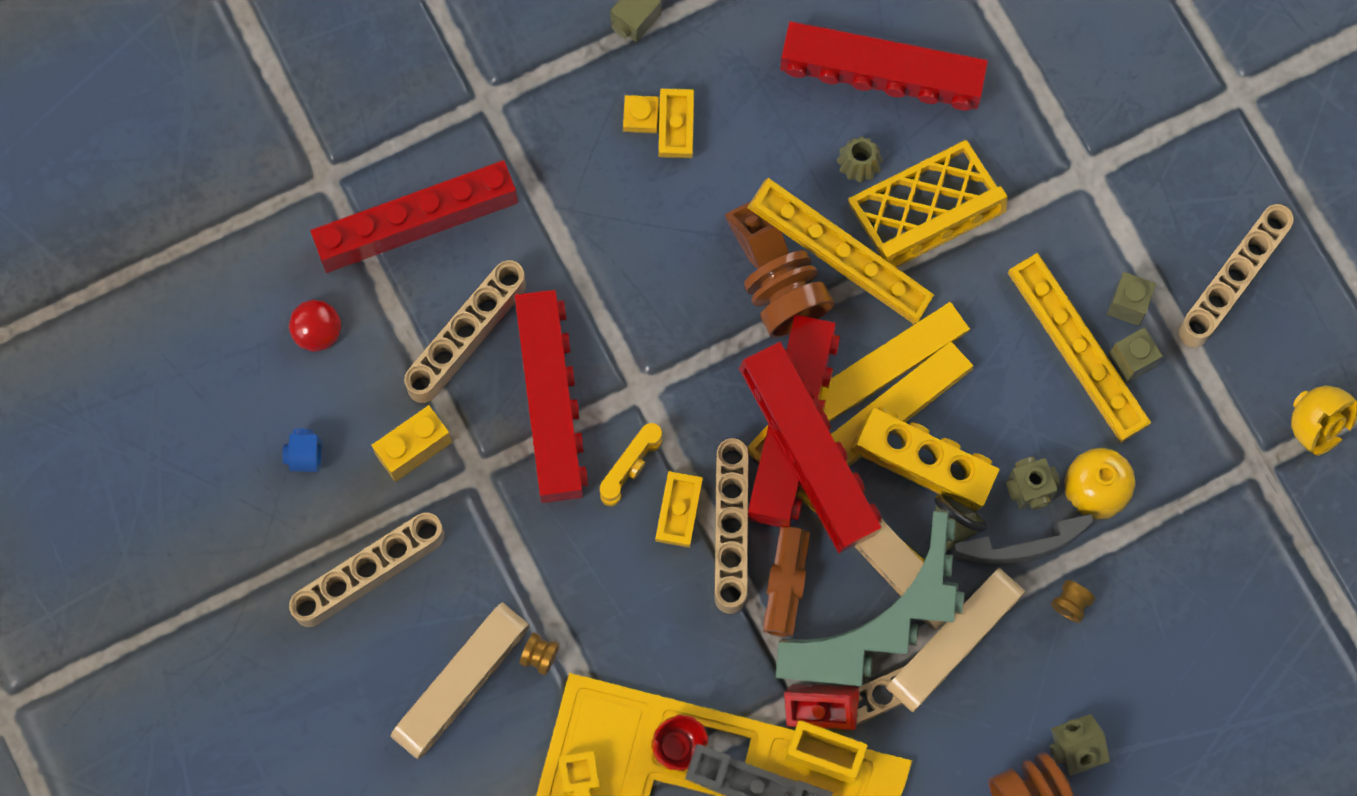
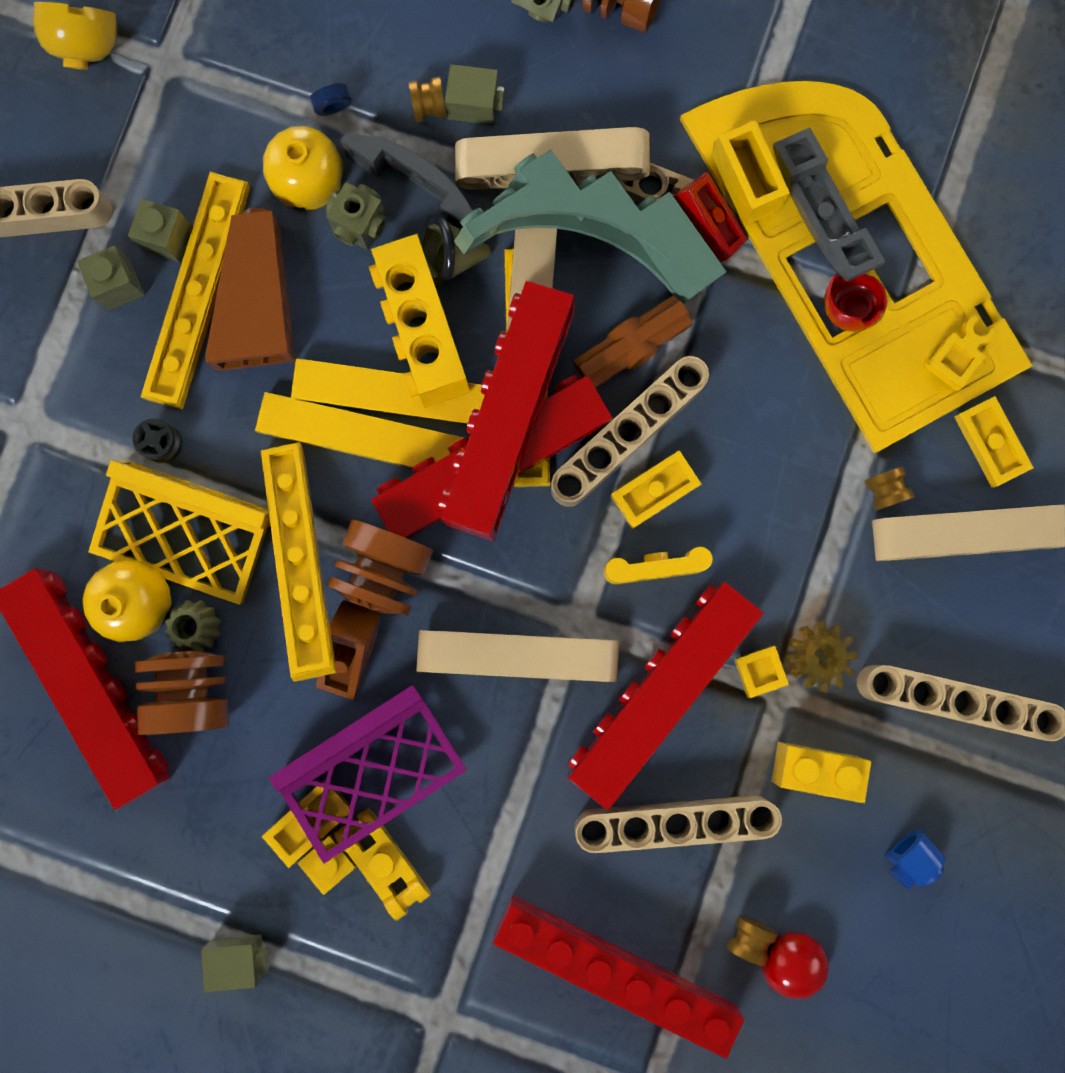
camera: 130 degrees left, 10 degrees up
(355, 312) = (752, 941): none -> pearl gold wheel
(487, 501) = (834, 650): none -> clear yellow gear
(504, 467) = (761, 671): none -> yellow plate
(504, 751) = (993, 442): none -> yellow plate
(610, 145) = (383, 865): none -> yellow plate
(656, 331) = (517, 656): none -> tan beam
(700, 187) = (347, 743): none -> magenta fence
(815, 111) = (181, 694): none -> dark orange wheel
(912, 135) = (126, 600): none -> yellow cylinder
(1000, 230) = (150, 435): none -> pearl dark grey wheel
(1038, 374) = (252, 299): none -> dark orange slope
(1048, 633) = (473, 94): none -> olive brick
(1130, 539) = (330, 99): none -> dark blue tile

